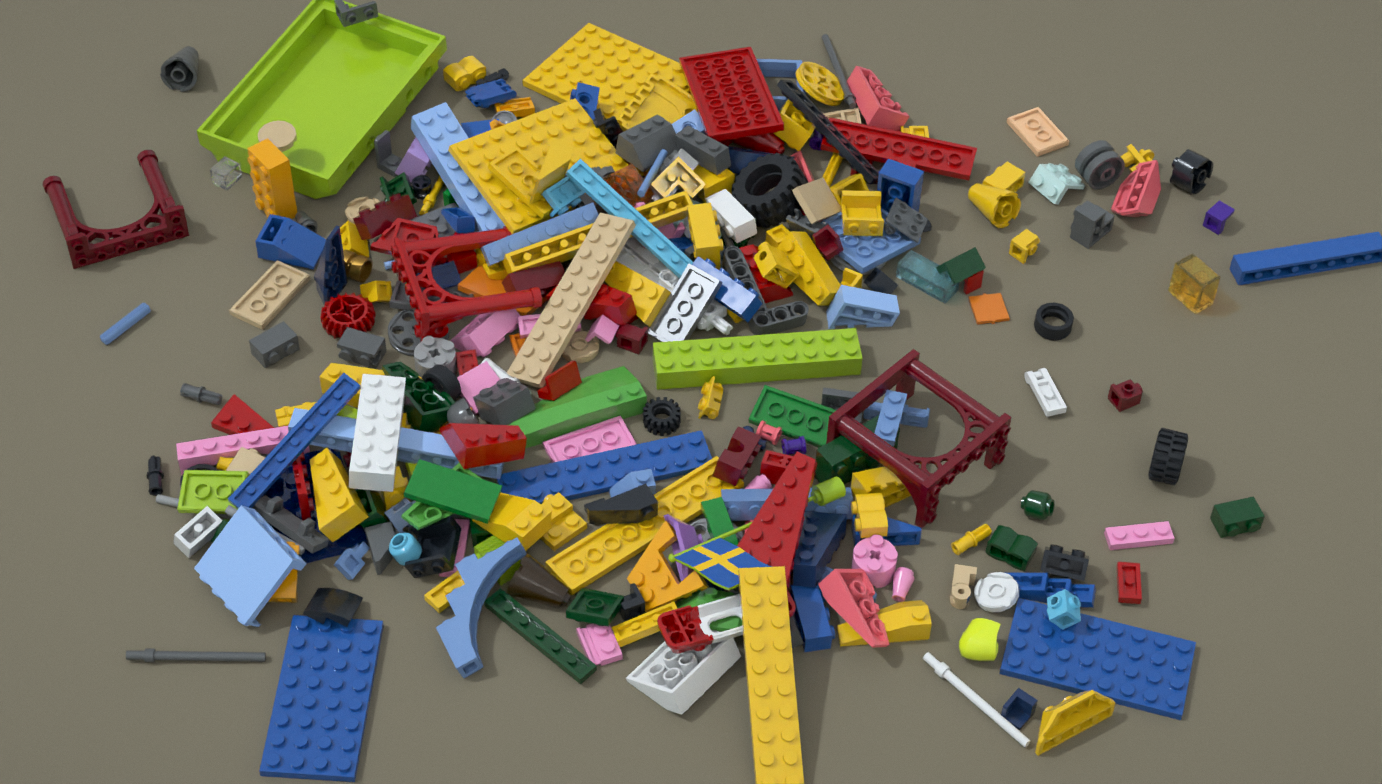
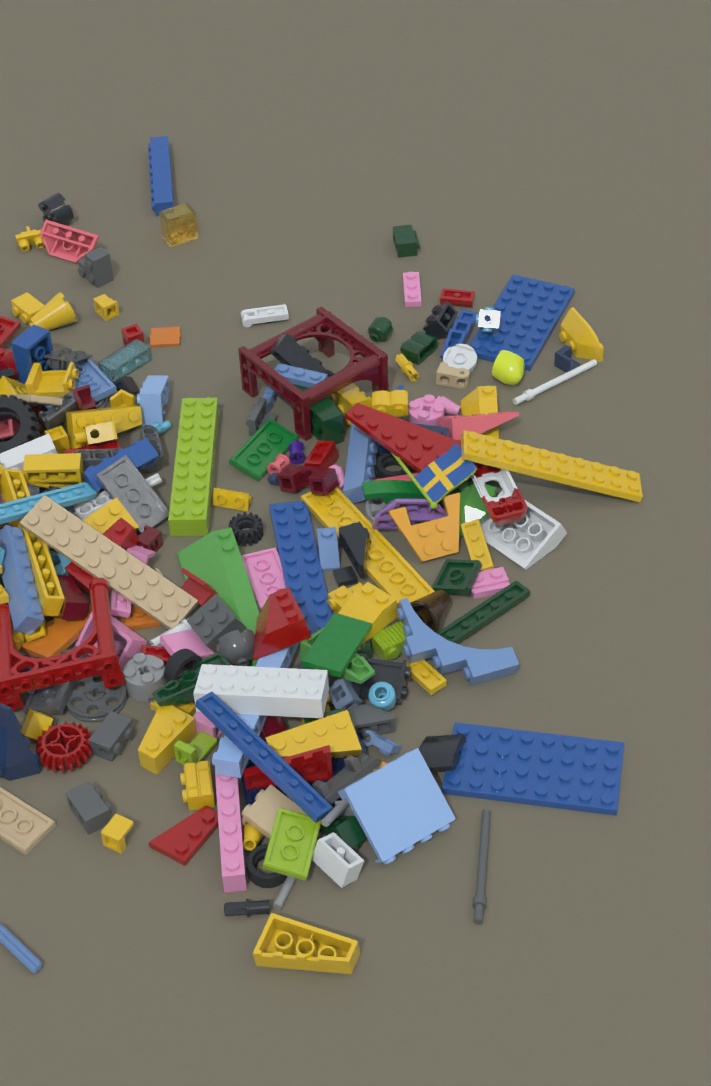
camera: 80 degrees left, 5 degrees down
(100, 517) = (304, 947): none -> yellow wedge
(200, 394) = (141, 872): dark grey axle -> none
(241, 365) = (115, 831): none -> yellow panel
(633, 604) = (451, 551): black panel -> none
(812, 319) = (161, 428): none -> medium azure arm
(919, 418) = (291, 353): none -> black brick
(963, 265) = (128, 331): dark green panel -> none
(1053, 310) = (192, 294): black tyre -> none
(1054, 181) = (39, 284): light aqua bracket -> none
(1099, 164) = (34, 252): dark grey wheel -> none
(1125, 395) = (276, 272): dark red brick -> none
(1168, 456) = (351, 256): black tyre -> none
(1217, 216) = (106, 209): dark purple panel -> none

